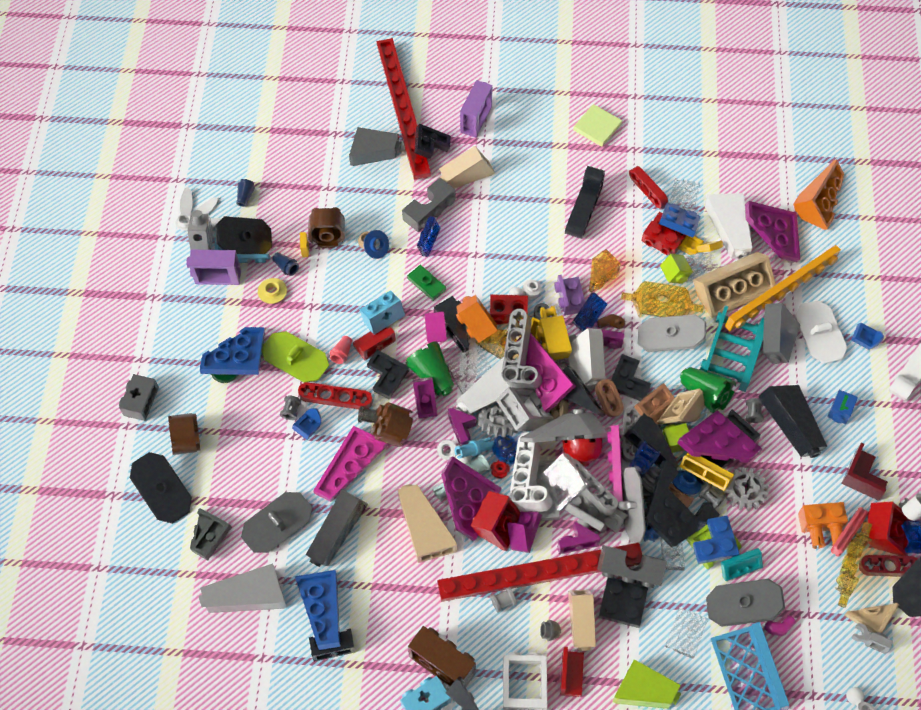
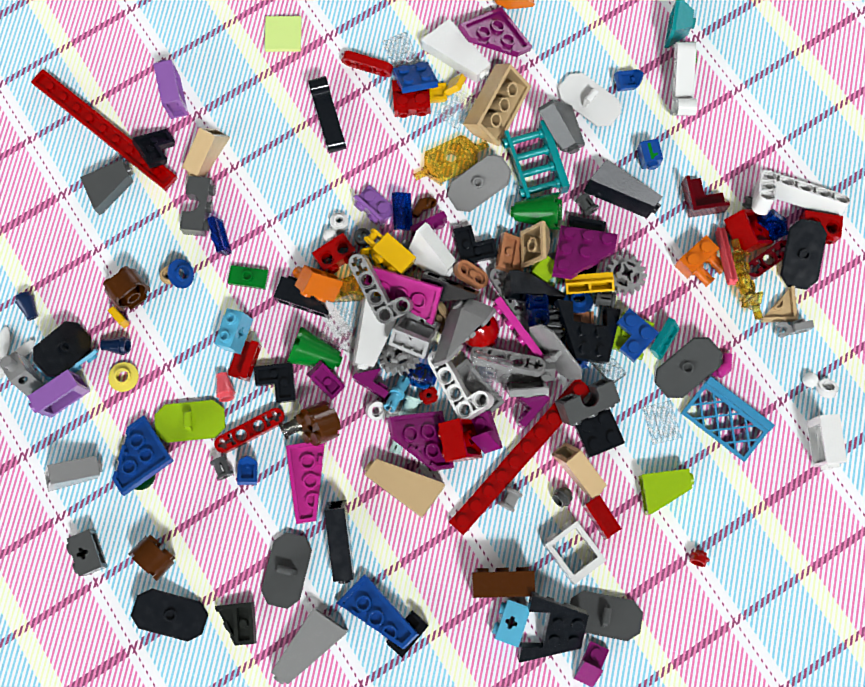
camera: 35 degrees left, 15 degrees up
(177, 331) = (72, 472): none -> light grey slope
(435, 327) = (290, 316): dark pink slope -> none
(603, 268) = (383, 165): clear yellow slope -> none
(676, 269) = (443, 124): lime brick -> none
(780, 290) = (538, 89): light orange plate -> none

